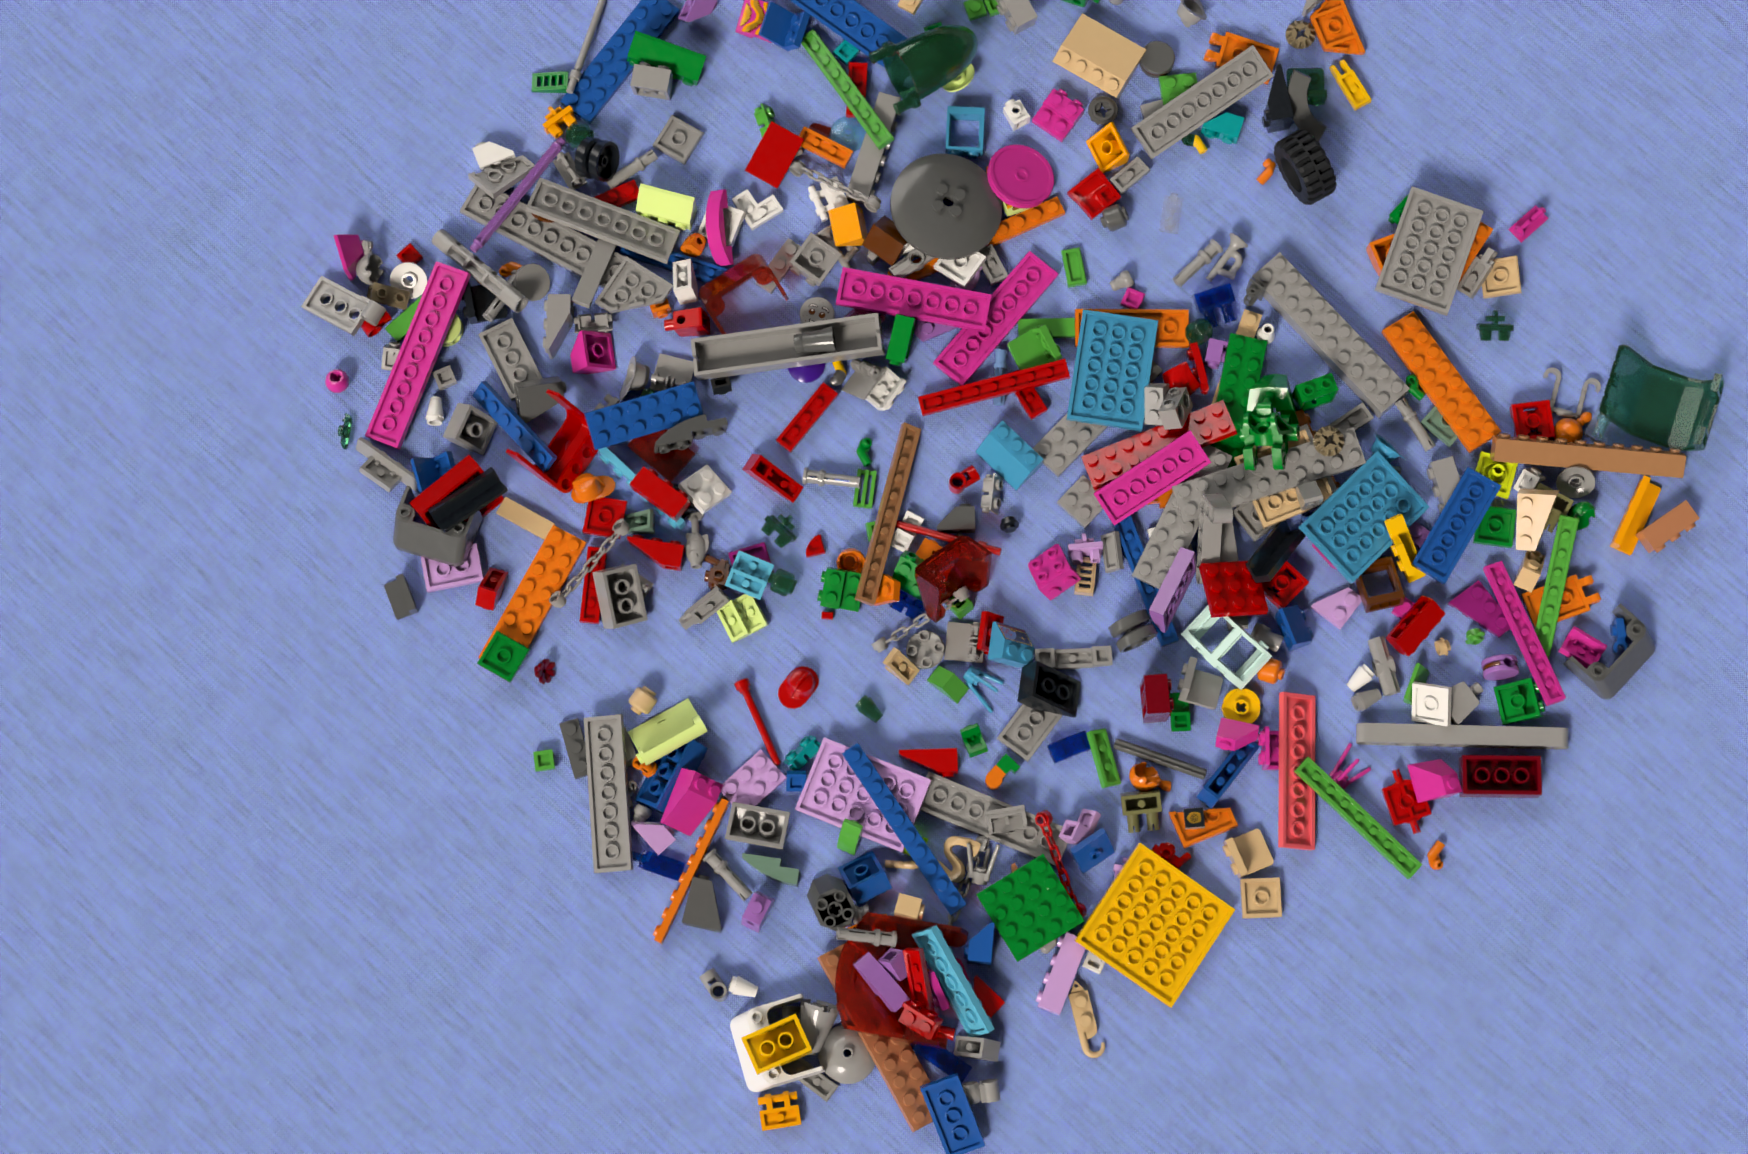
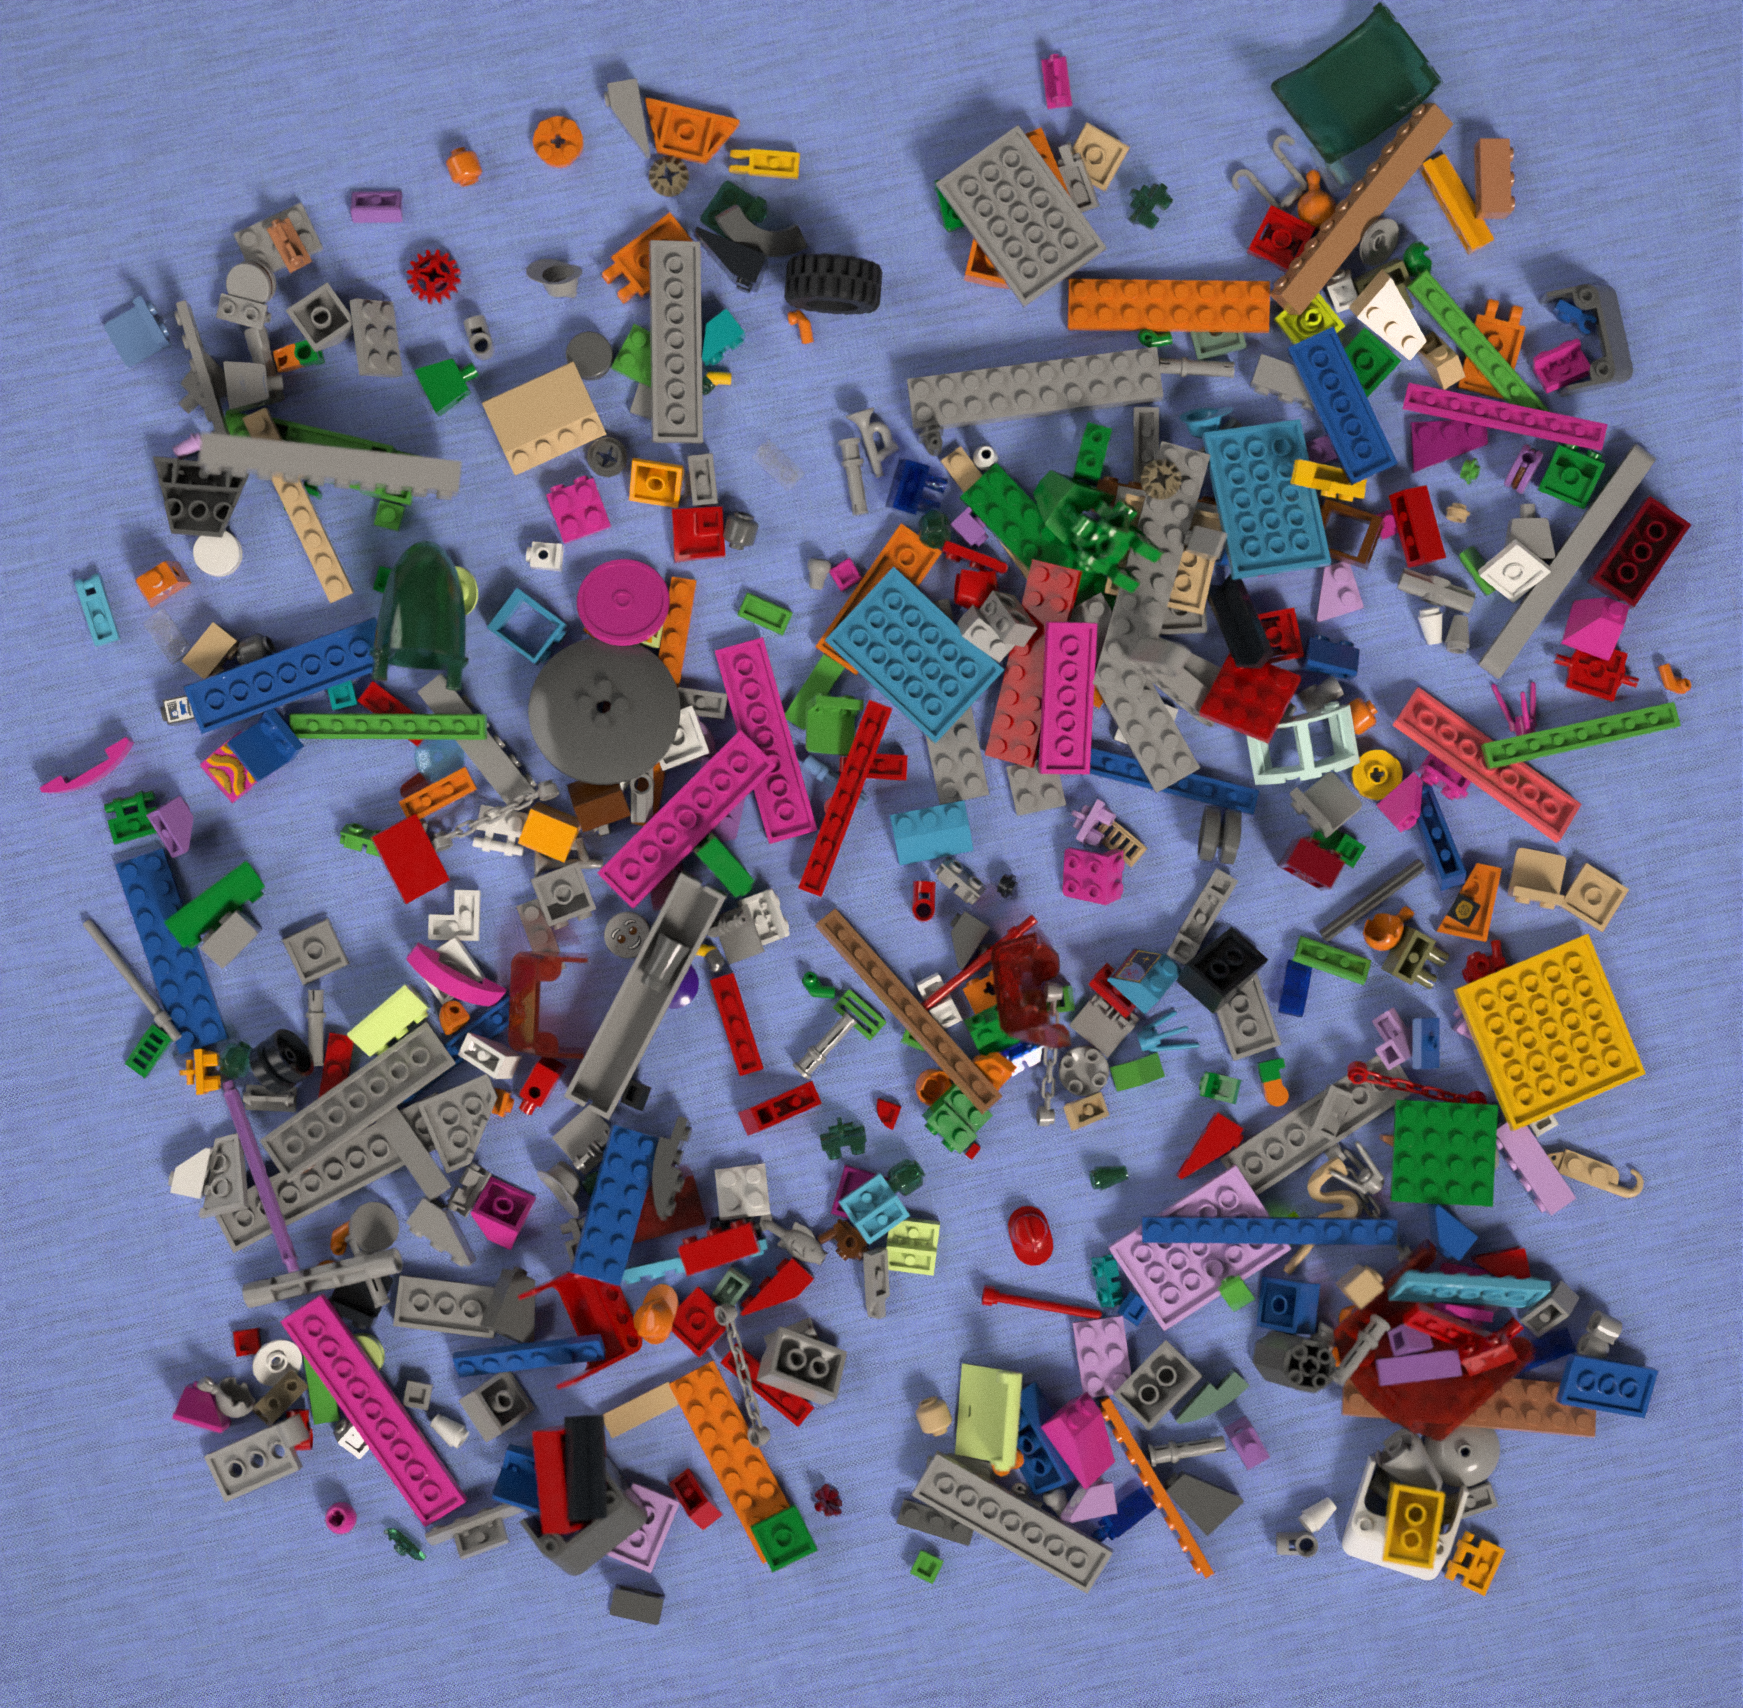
camera: 60 degrees left, 10 degrees up
(1112, 552) = (1114, 795): light grey tile -> none
(1173, 588) = (1204, 760): medium lavender slope -> none

